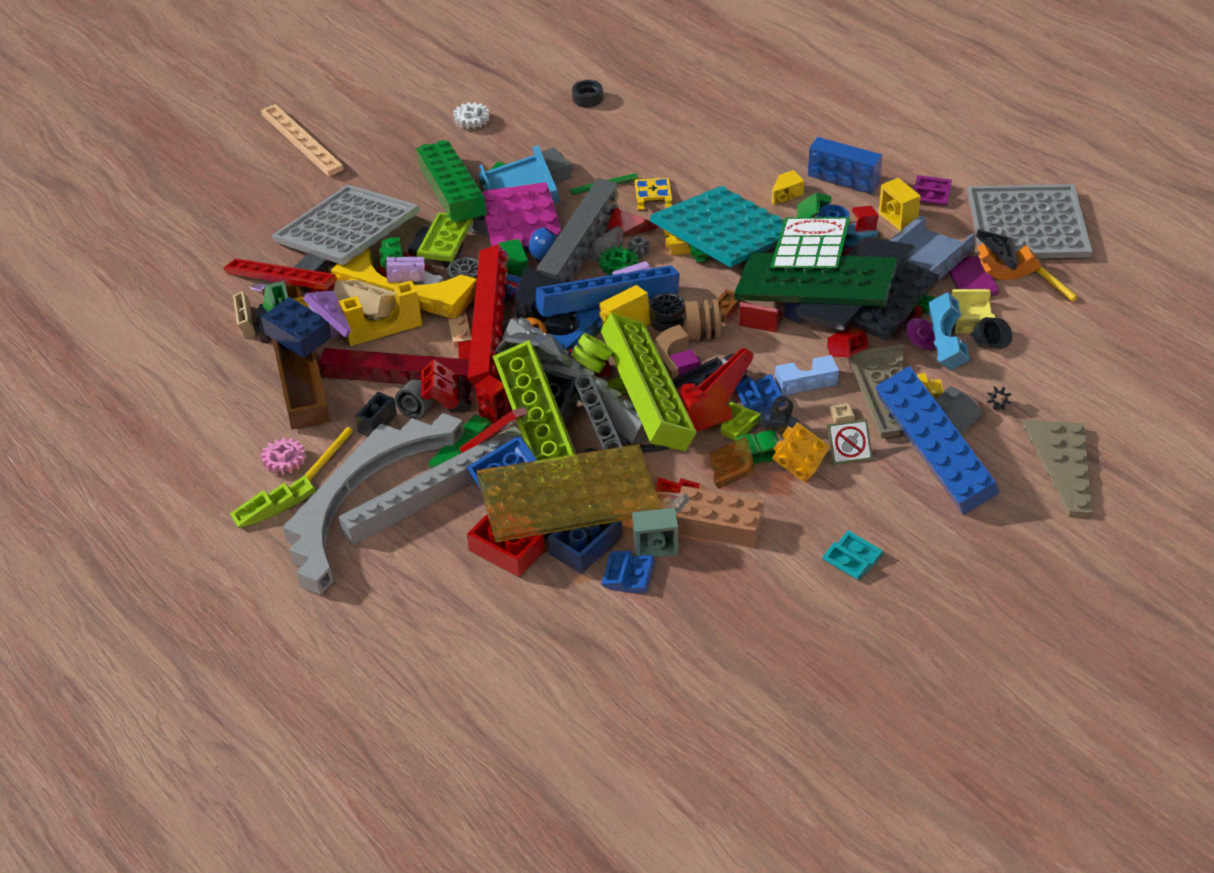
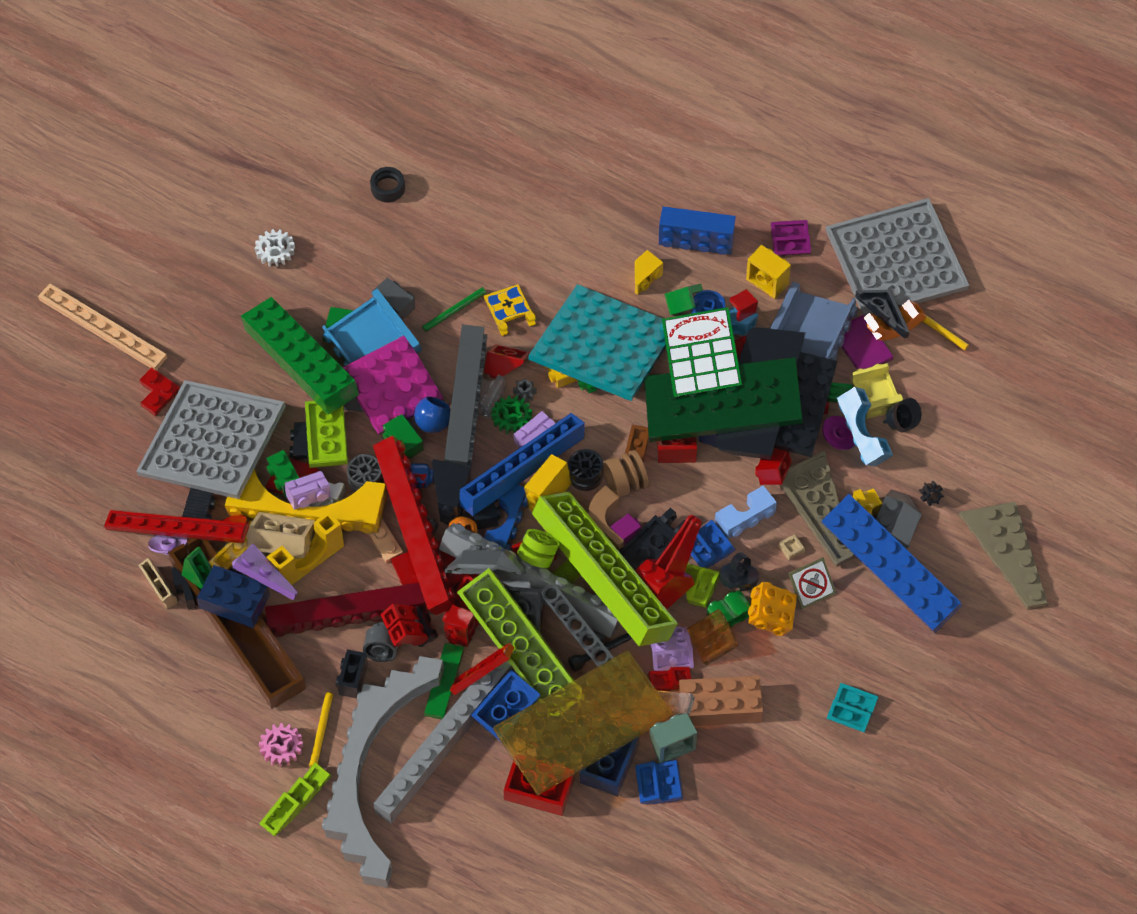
camera: 20 degrees left, 15 degrees up
(324, 188) = (161, 390): none -> red plate
(687, 465) = (673, 653): none -> lavender bracket

